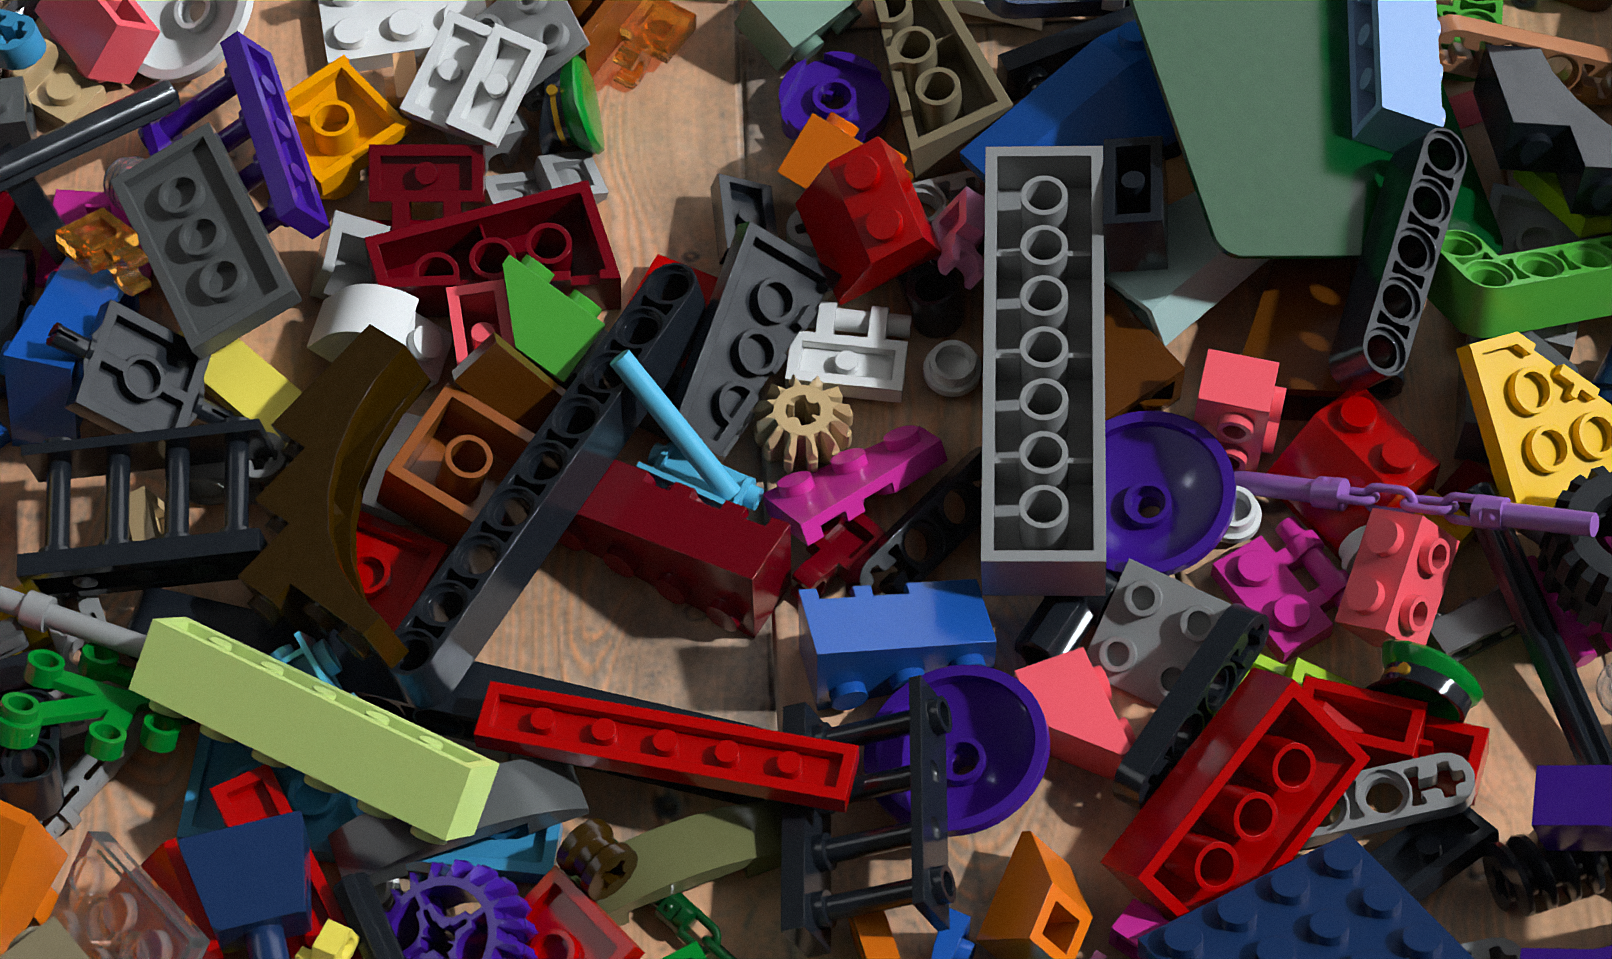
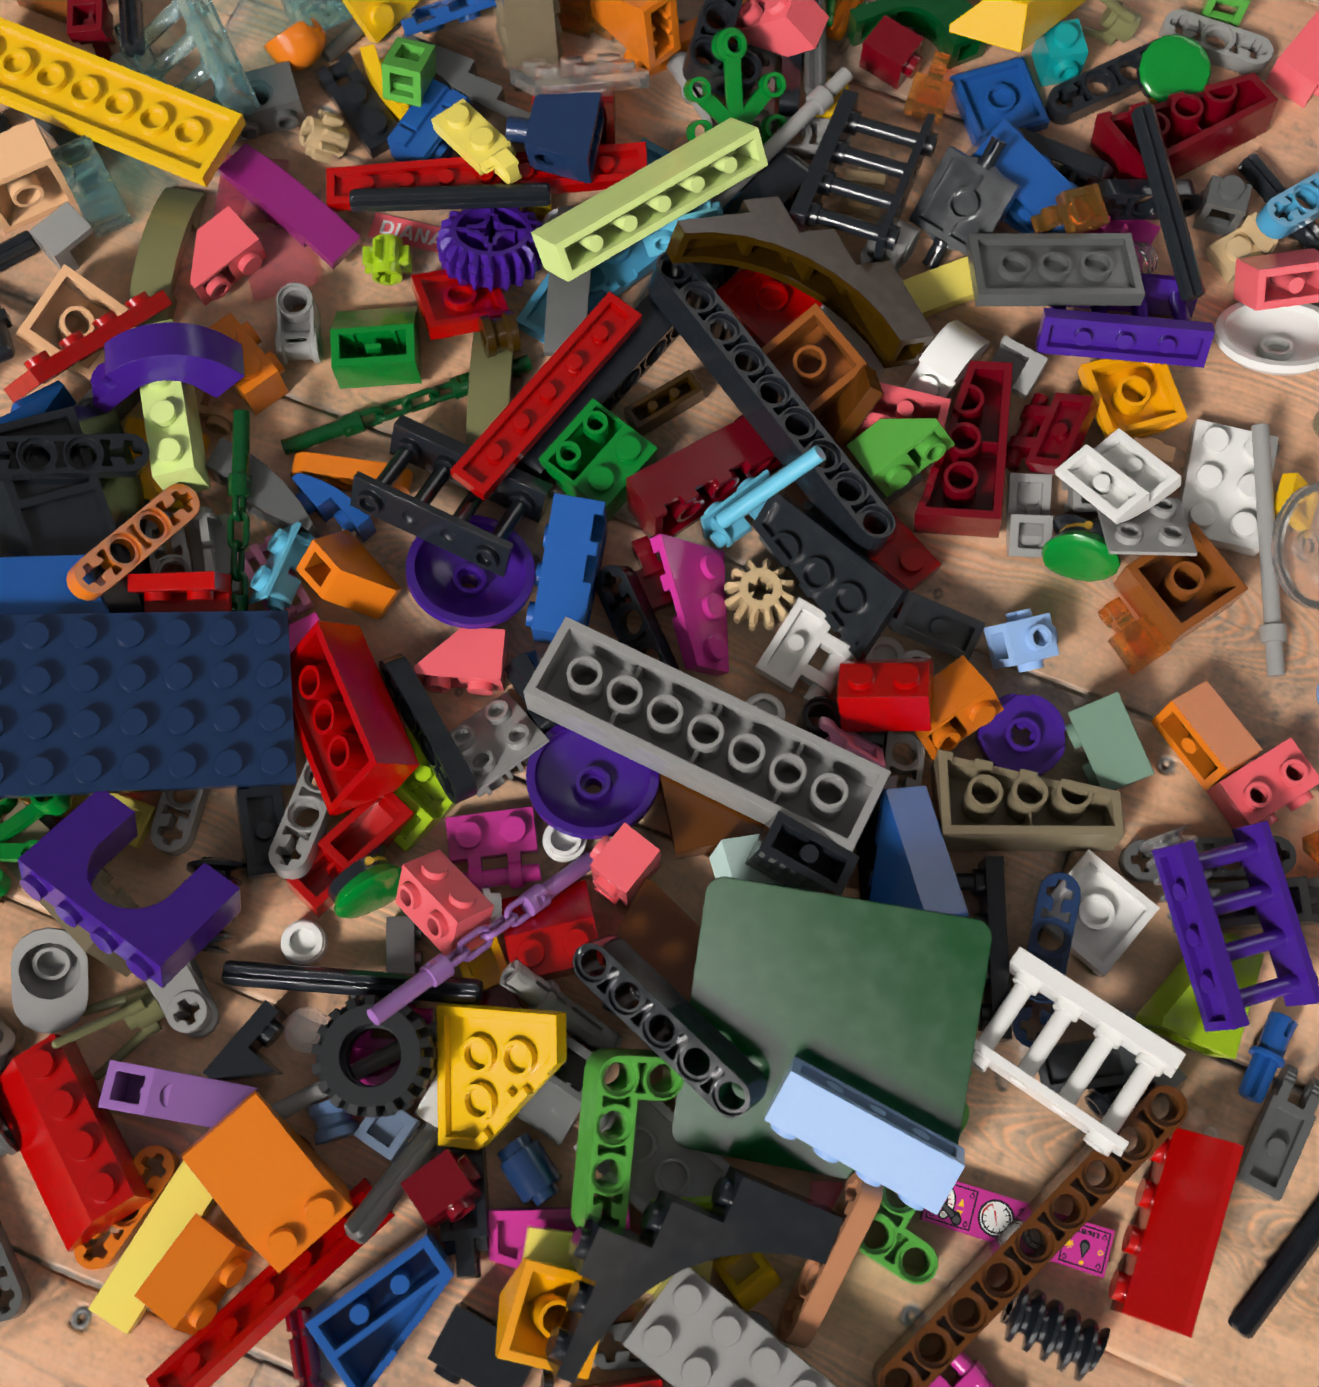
camera: 115 degrees right, 15 degrees up
(588, 642) = (664, 403): none -> dark brown piece
(719, 662) = (597, 457): none -> green slope
(722, 130) = (1022, 641): none -> light blue brick
(1438, 418) = (547, 996): none -> light grey pin
(1525, 744) = (304, 942): none -> white tile

